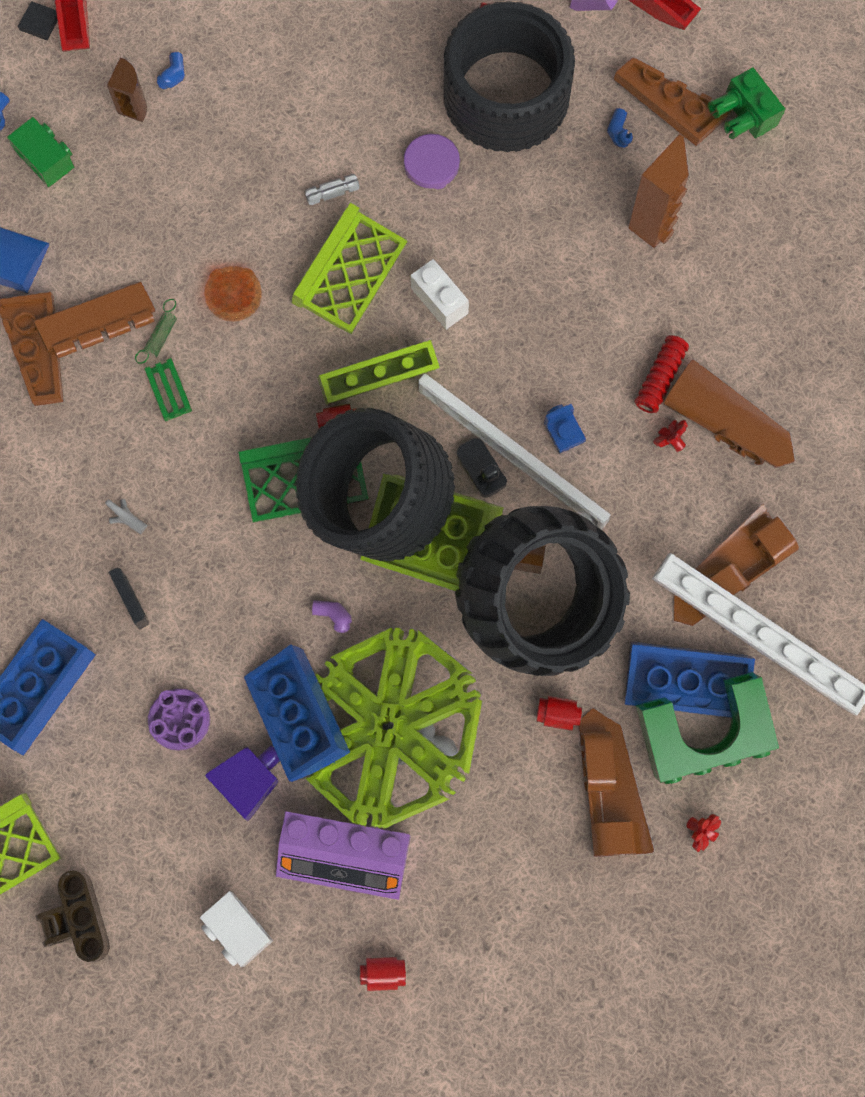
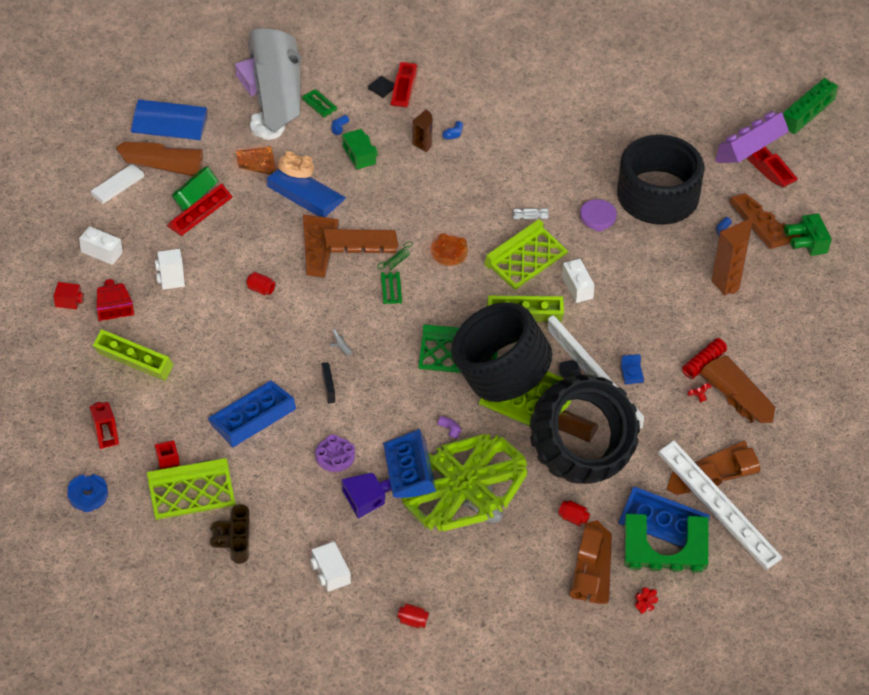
camera: 15 degrees right, 25 degrees down
(342, 855) = (411, 547): medium lavender slope -> none

